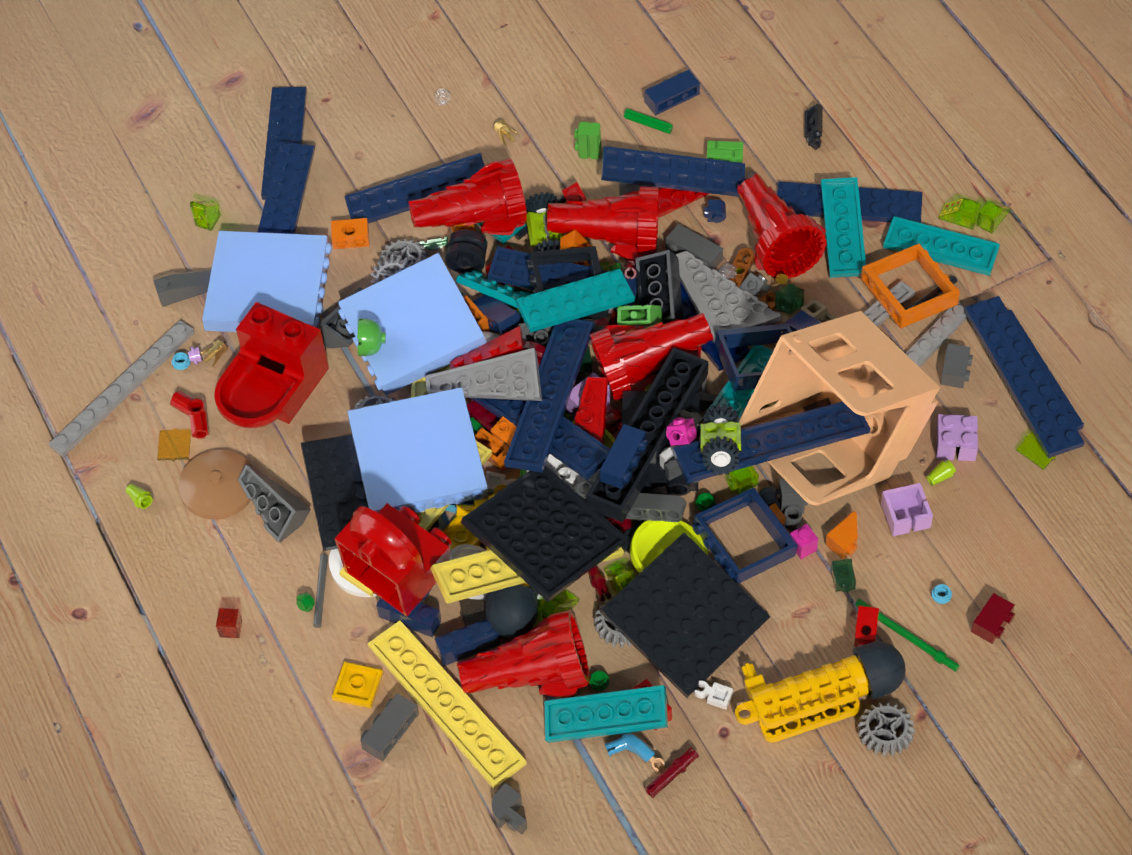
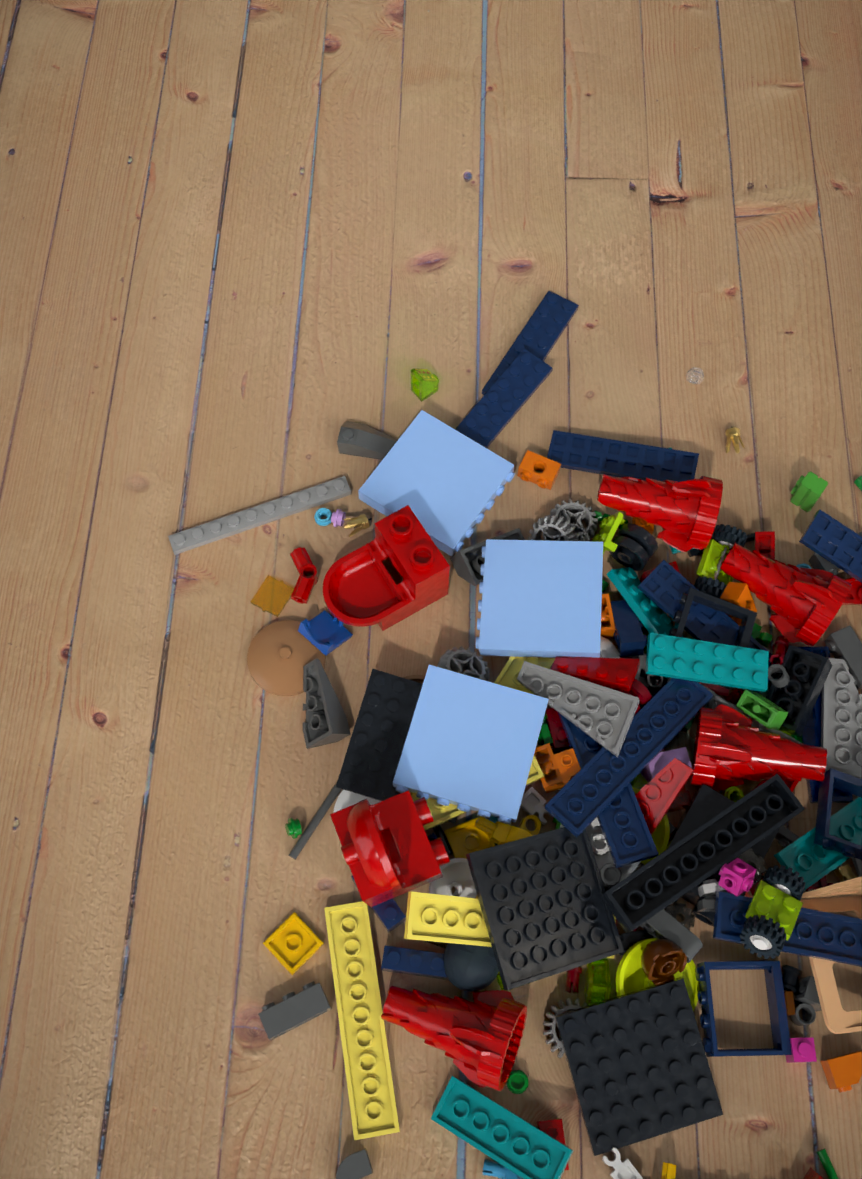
camera: 25 degrees right, 10 degrees up
(139, 496) = (213, 633): lime cone -> none
(229, 623) = (215, 810): clear red brick -> none
(239, 445) = (324, 632): none -> blue piece
(369, 337) = (492, 596): bright green cylinder -> none
(437, 245) = (608, 528): none -> lime piece
(623, 456) = (664, 874): dark blue brick -> none
(643, 287) = (781, 682): none -> dark grey beam
(661, 526) = (662, 960): none -> reddish brown cylinder
(705, 501) = (722, 946): green plate -> none
(843, 575) = (815, 1107): clear green brick -> none

